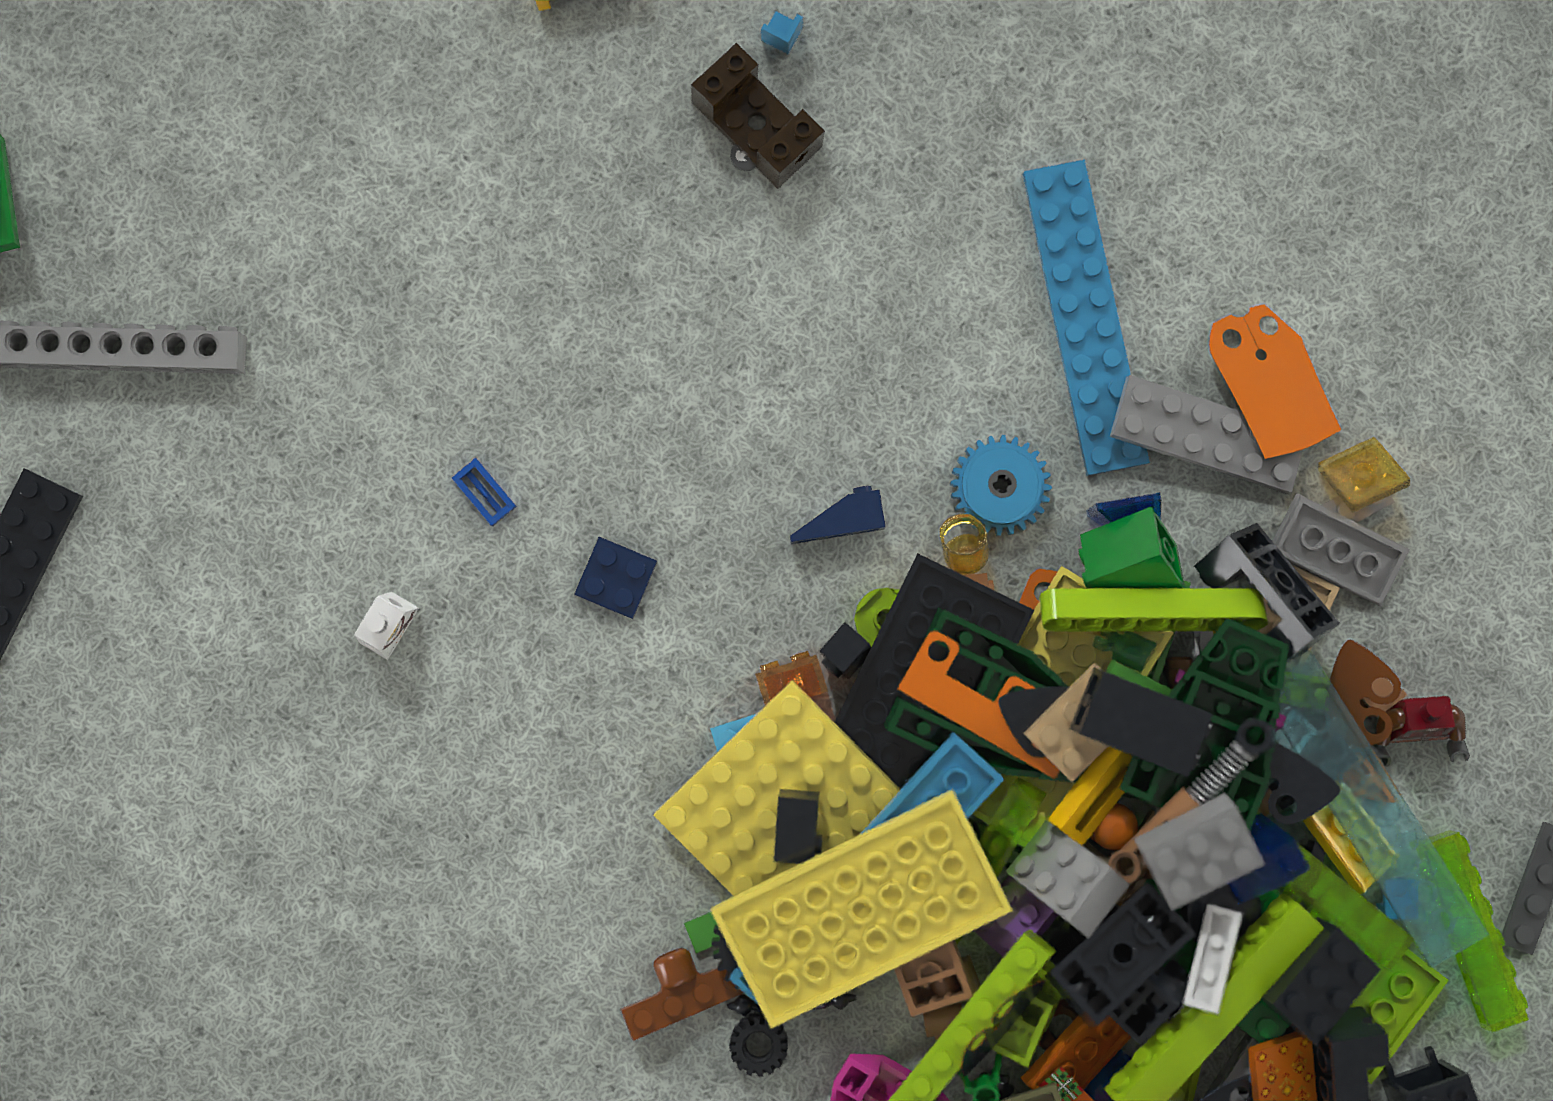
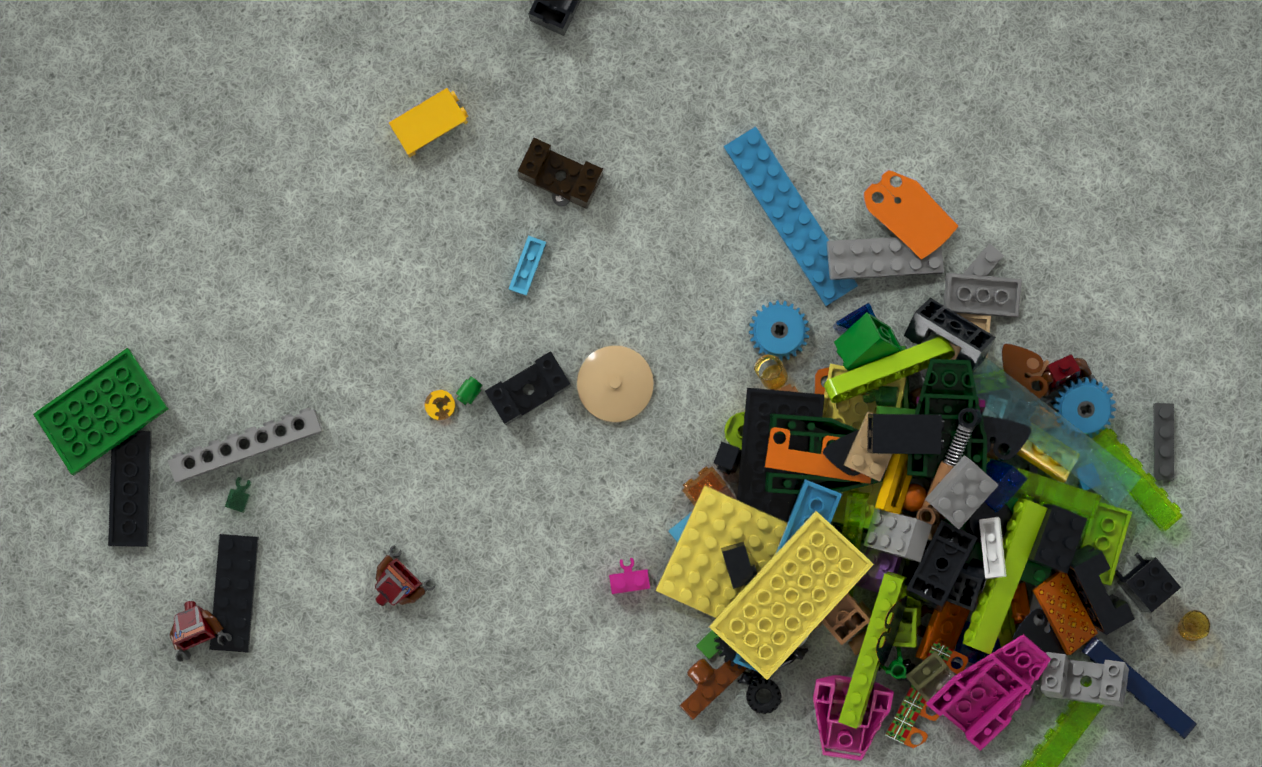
camera: 20 degrees left, 0 degrees up
(73, 424) = (238, 498): none -> clear green plate
(261, 648) = (397, 583): none -> torso
(385, 623) = (462, 542): white torso -> none
(423, 395) = (431, 405): none -> yellow piece
(488, 395) = (469, 391): none -> green brick
(501, 512) = (501, 454): blue tile -> none
(546, 435) = (510, 398): none -> black plate
(615, 577) = (581, 466): dark blue plate -> none
(619, 782) = (629, 580): none -> dark pink brick
(652, 239) = (527, 265): none -> medium azure plate
(716, 470) = (615, 383): none -> tan dish
(782, 31) = (554, 117): dark azure panel -> none
(849, 516) = (701, 380): dark blue slope -> none
(1217, 1066) = (1020, 604): none -> orange hinge
(1363, 474) = (980, 247): clear yellow plate -> none
(1454, 774) = (1085, 394): none -> dark azure gear

